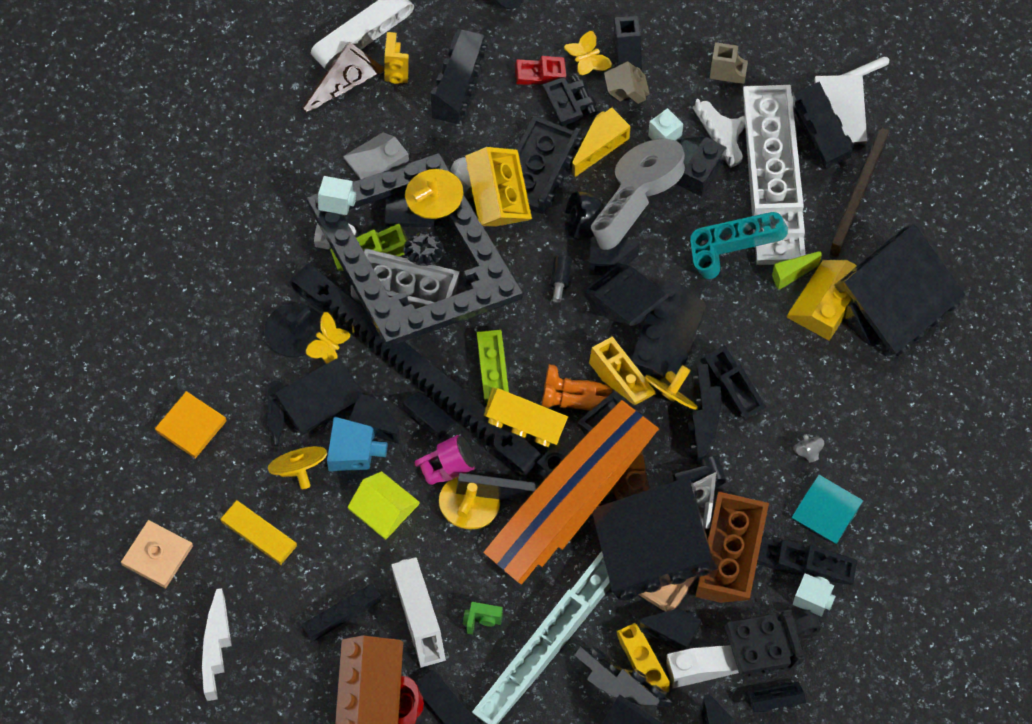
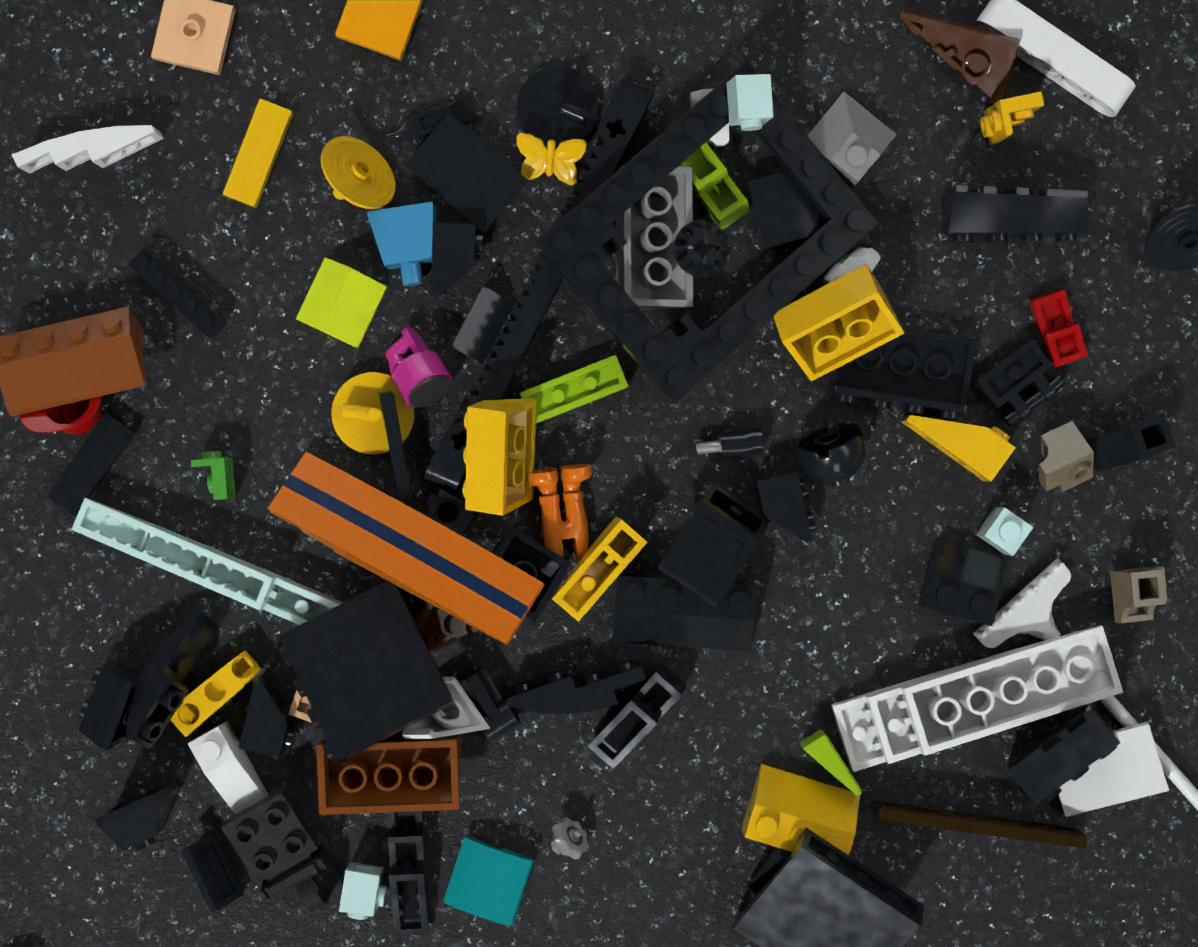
camera: 75 degrees right, 25 degrees up
(418, 612) = (200, 390): white slope -> none
(434, 193) = (799, 237): yellow shield -> none
(587, 58) = (1097, 388): yellow piece -> none
(642, 173) = (922, 521): light grey beam -> none
(671, 391) = (591, 640): yellow shield -> none
(738, 241) = (849, 677): teal beam -> none

